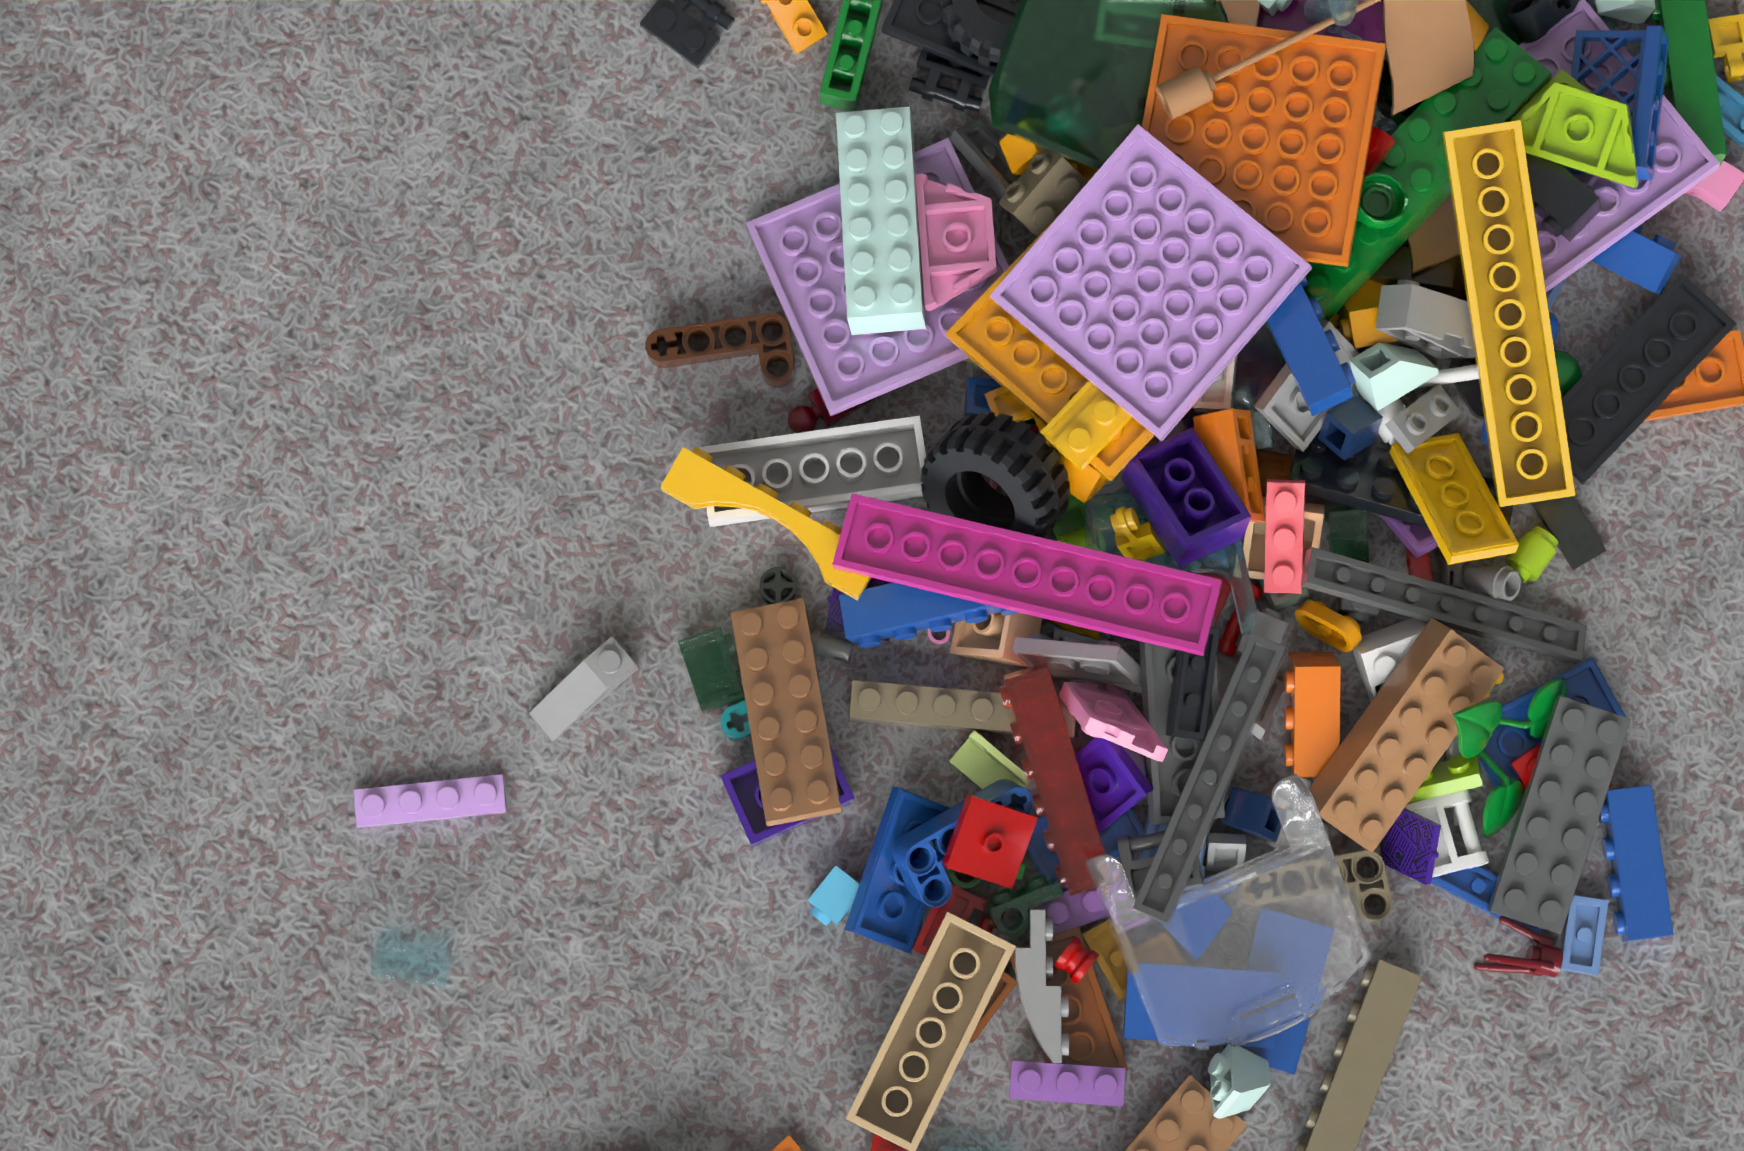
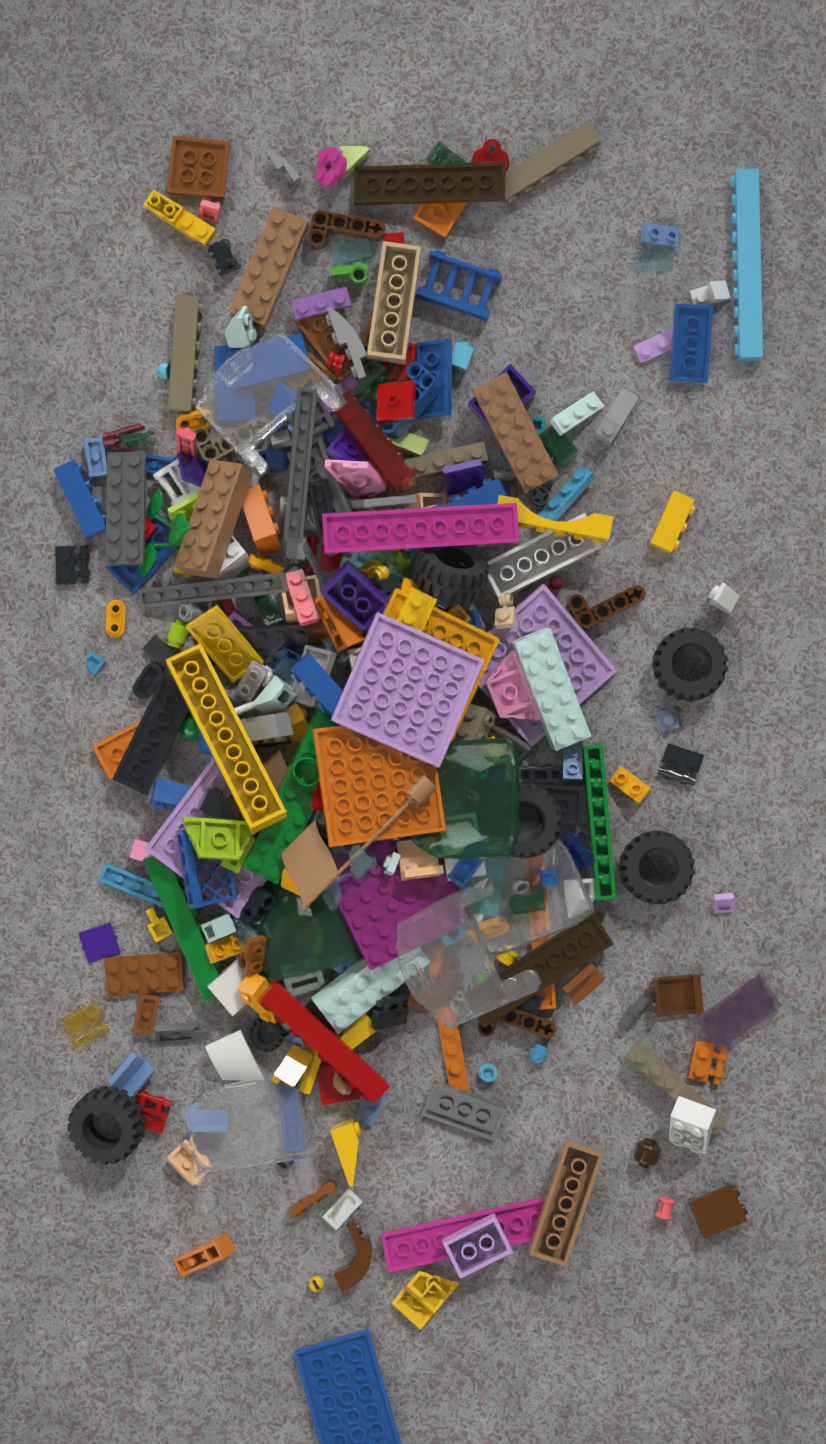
camera: 160 degrees right, 5 degrees up
(237, 892) = (748, 265): none -> medium azure brick
(328, 860) = (711, 294): none -> white slope
(383, 1002) = (659, 235): none -> medium blue plate
(398, 775) = (690, 343): none -> blue plate
(506, 287) = (723, 597): none -> white slope
(550, 457) = (672, 522): none -> yellow brick
(610, 139) = (690, 638): none -> black tyre
(656, 715) = (576, 413): none -> light aqua plate
(682, 108) = (668, 719): none -> sand blue plate
(732, 569) = (567, 494): none -> dark azure plate
(798, 997) = (462, 304): none -> blue fence
(884, 80) = (572, 763): none -> medium blue plate
(909, 665) = (463, 476): none -> dark purple plate
(918, 372) = (505, 616): none -> tan plate
(1009, 1136) = (340, 271): none -> bright green plate
(1388, 940) = (194, 421): none -> light orange plate
(1405, 1058) = (163, 370): none -> medium azure hinge
(1408, 895) = (186, 441): none -> coral plate
(1504, 943) = (133, 439): none -> clear green plate
(1613, 488) = (147, 680): none -> black plate
(1637, 621) = (117, 618): none -> light orange plate
(1701, 750) = (66, 565): none -> black plate
(1702, 554) = (94, 663): none -> dark azure tile

